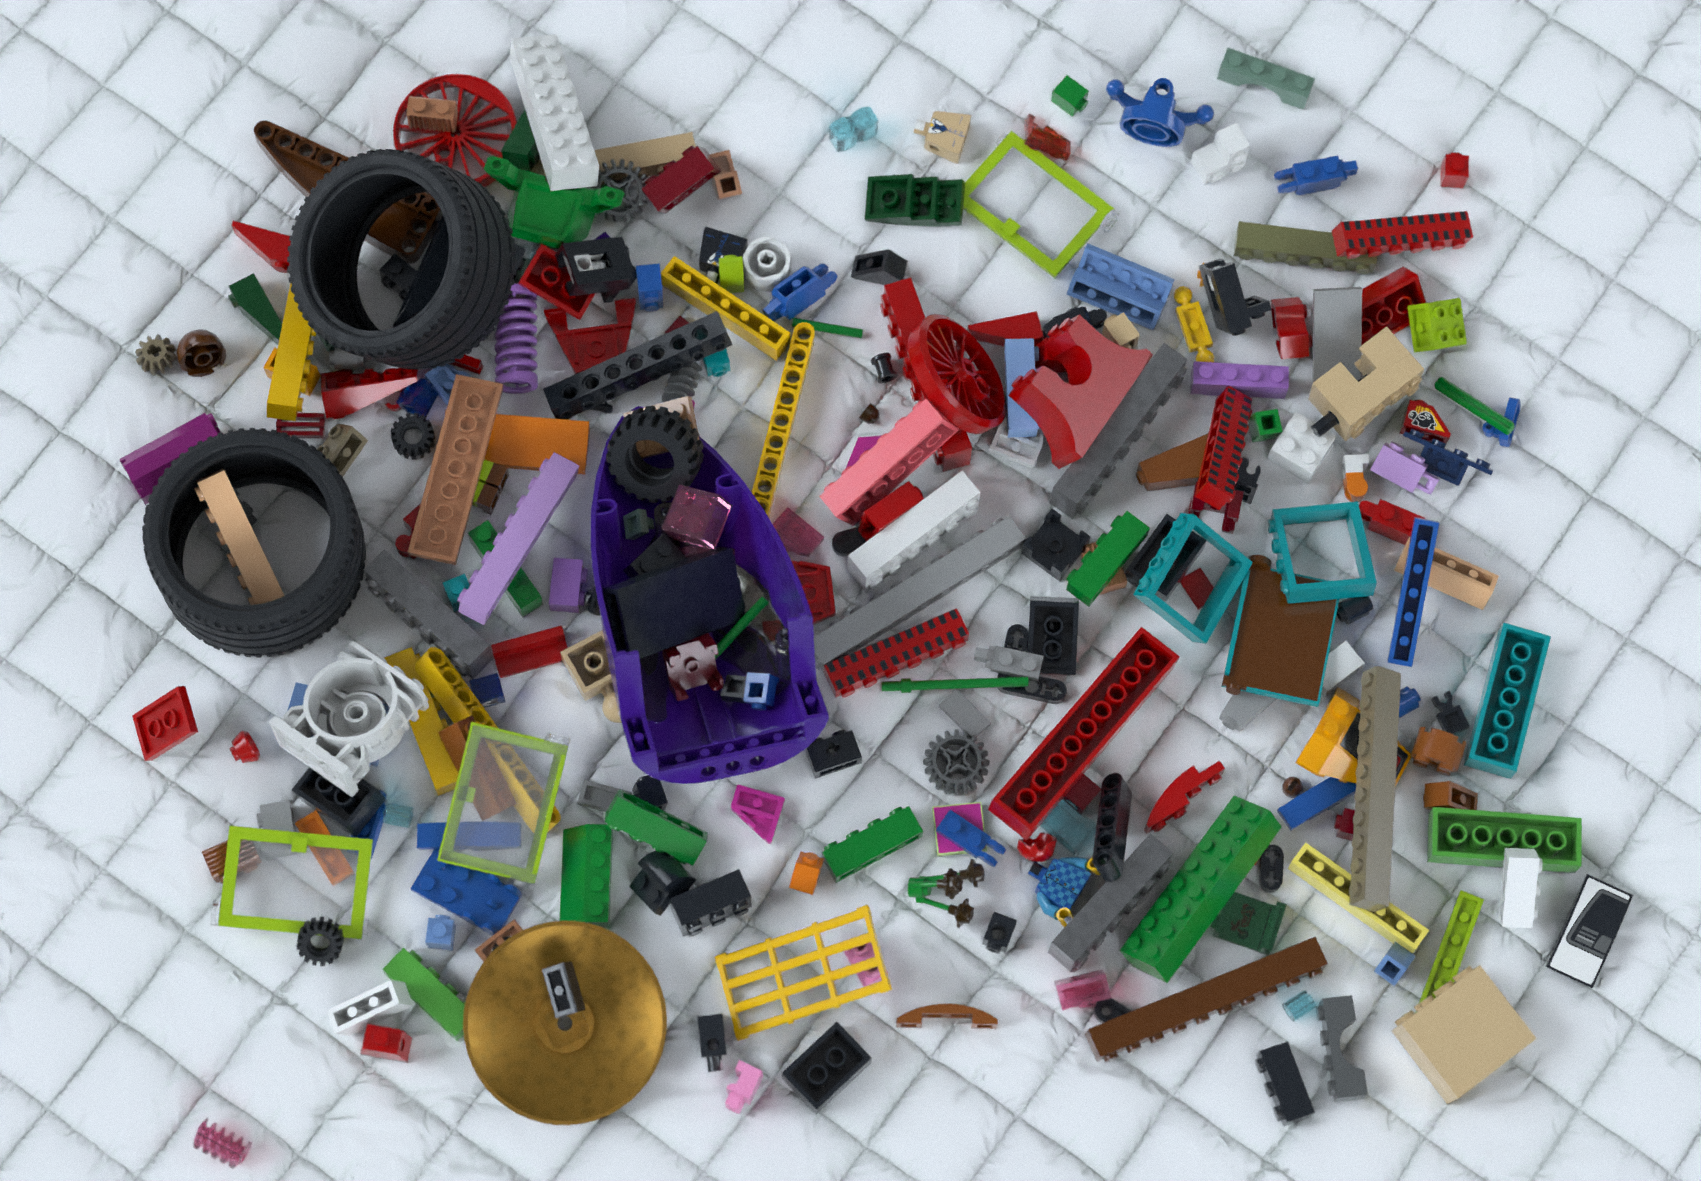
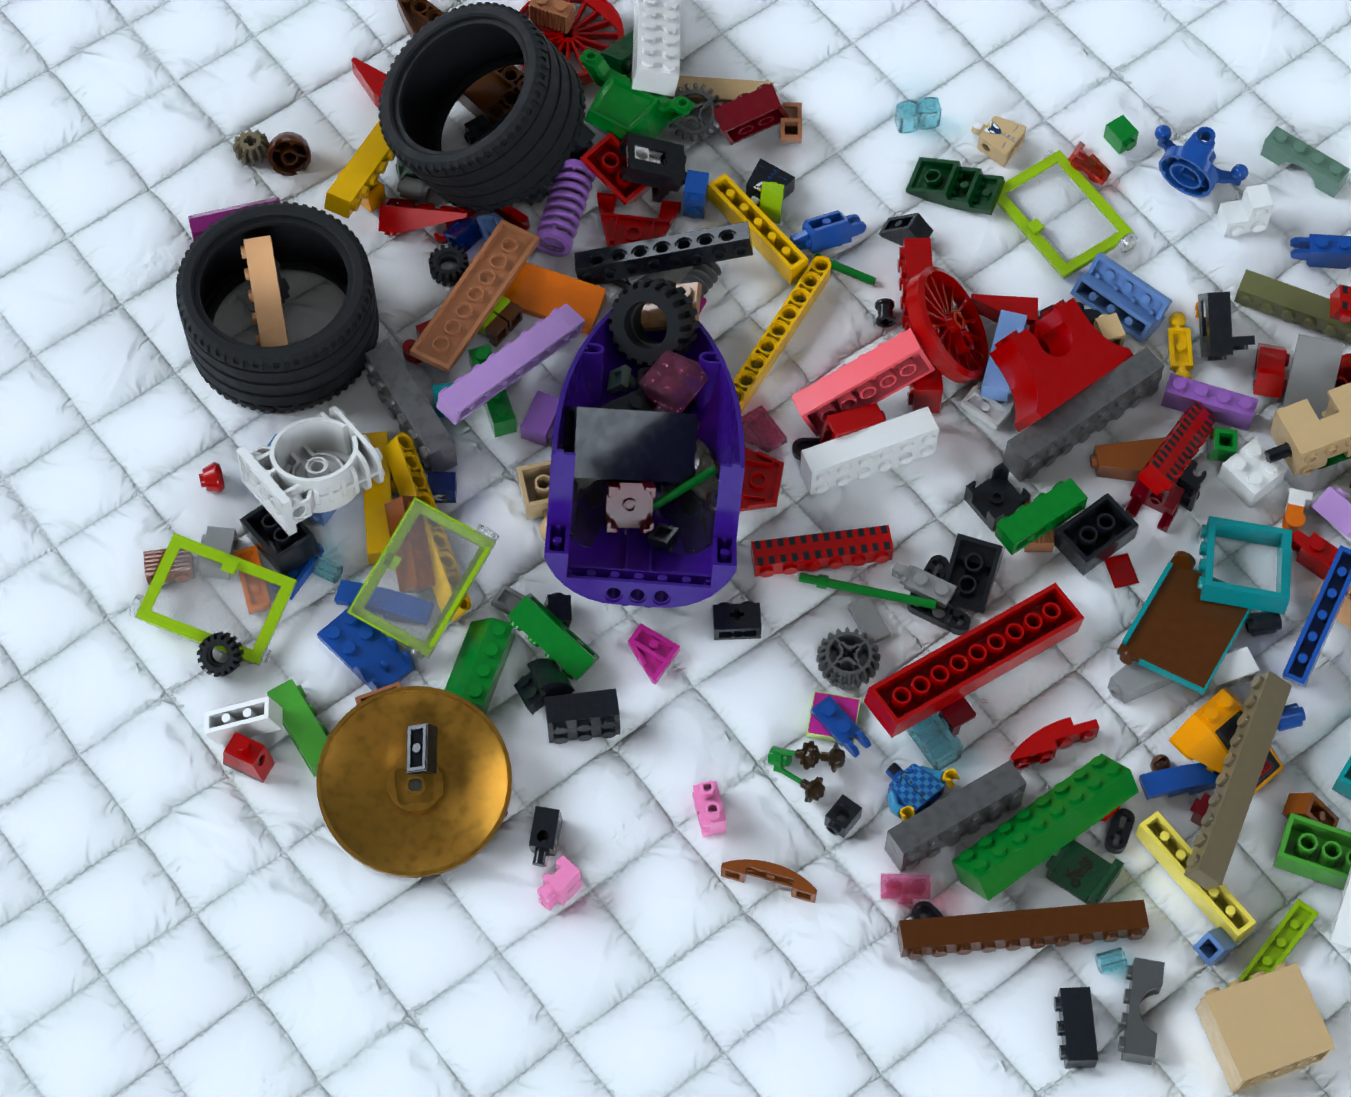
camera: 20 degrees right, 10 degrees down
(165, 723) = (150, 437): red plate -> none
(220, 1145) = (71, 803): clear pink piece -> none
(255, 306) = (348, 125): dark green slope -> none
(302, 425) = (363, 231): dark red tile -> none
(343, 446) = (385, 256): dark tan brick -> none
(440, 933) = (330, 678): medium blue brick -> none
(529, 651) = (490, 464): red panel -> none
(717, 363) = (736, 271): teal brick -> none
(760, 690) = (684, 541): blue brick -> none
(769, 251) = (805, 200): white brick -> none
(778, 967) = (668, 806): yellow door -> none
(806, 872) = (679, 714): orange brick -> none
(826, 1068) = (642, 889): black brick -> none
(870, 414) = (860, 347): dark brown hinge -> none
(872, 843) = (748, 707): green brick -> none
(918, 591) = (859, 503): light grey brick -> none
(1037, 849) = (901, 754): red hair -> none
(1112, 827) = (975, 748): black beam -> none
(1221, 594) = (1140, 578): teal window -> none
(1438, 750) = (1310, 766): dark orange brick -> none
(1450, 717) = (1330, 743): black plate -> none

